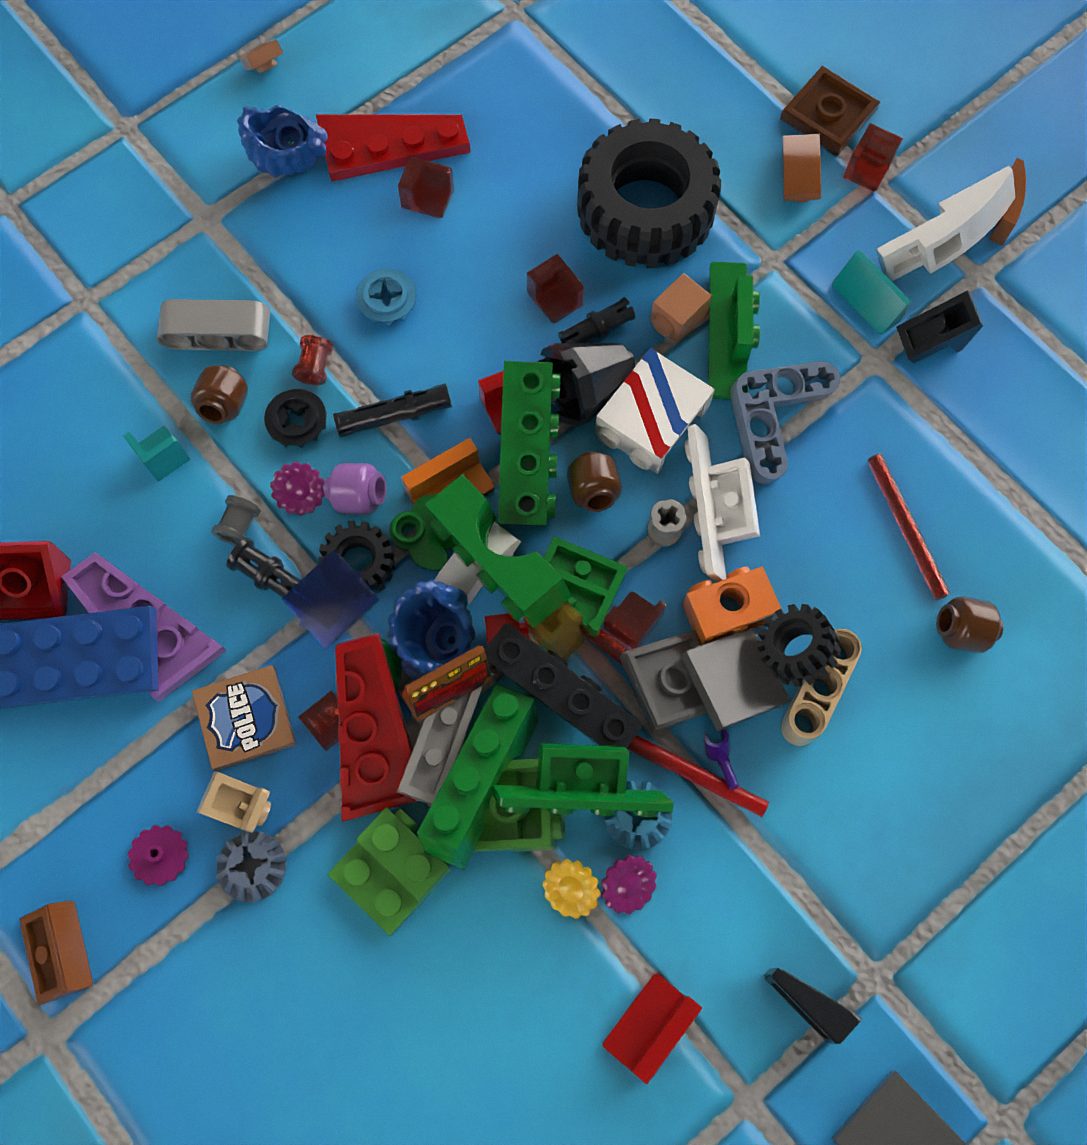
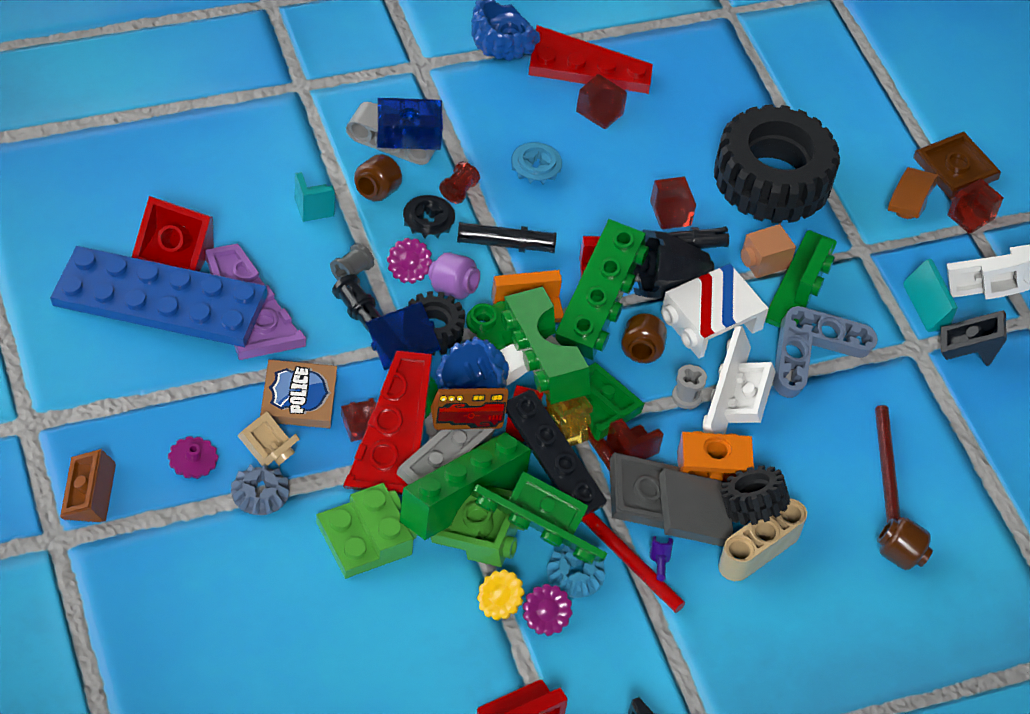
camera: 15 degrees right, 20 degrees down
(225, 316) = (409, 123): none -> clear blue brick

